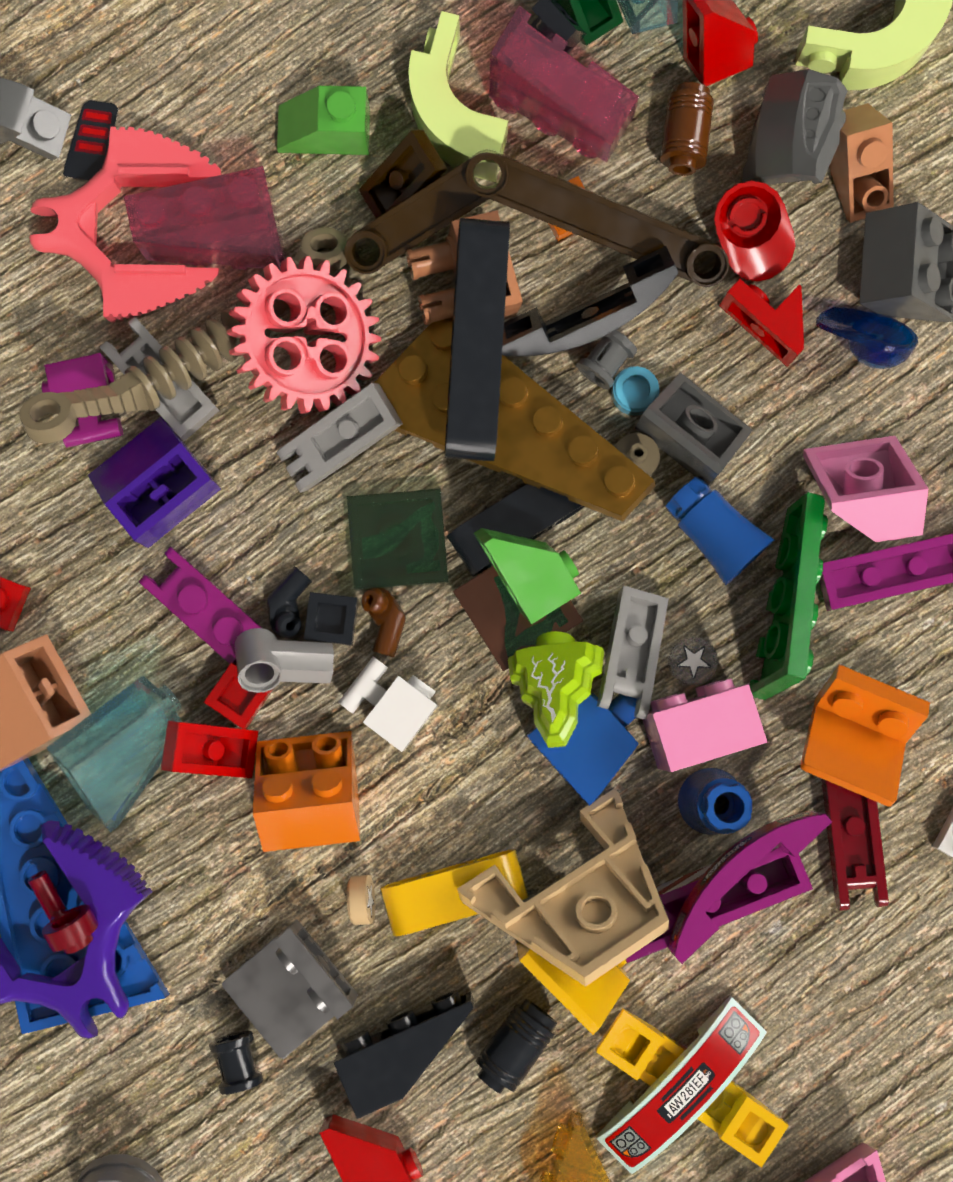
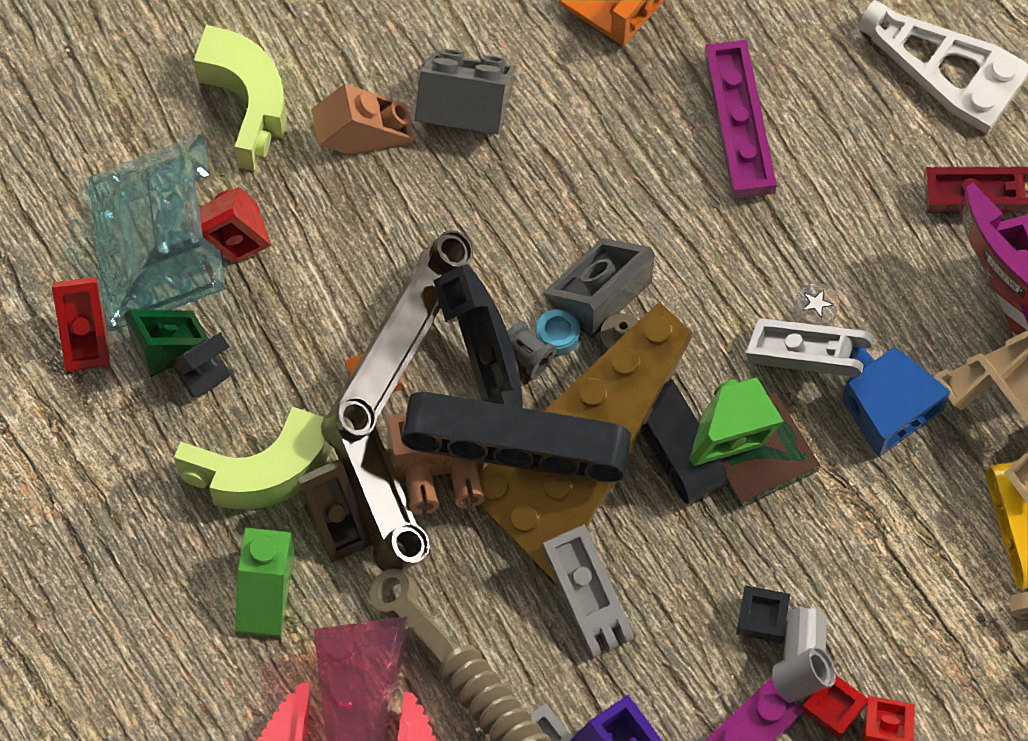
camera: 85 degrees left, 20 degrees down
(283, 604) = (745, 661): black arm -> none
(304, 292) = (450, 609): coral gear -> none
(306, 791) = (929, 645): orange slope -> none
(388, 617) = (765, 564): reddish brown arm -> none
(397, 539) = (687, 552): clear green tile -> none
(397, 711) = (854, 558): white brick -> none
(555, 681) = (836, 409): lime rock -> none
(557, 91) = (265, 365): clear pink wedge -> none
(687, 128) = (312, 261): reddish brown head -> none
(698, 798) = (947, 296): blue plant -> none
(703, 727) = (881, 291): bright pink brick -> none
(717, 528) = (699, 268): blue plant -> none
(754, 230) = (416, 213): red cap -> none
(777, 329) = (508, 206): red slope -> none
(792, 599) = (766, 213): green wing -> none
(796, 128) = (334, 167): dark grey slope -> none
(861, 734) = (888, 174): orange bracket -> none
(871, 337) = (526, 129): clear blue cap -> none
(871, 486) = (664, 142): bright pink slope -> none

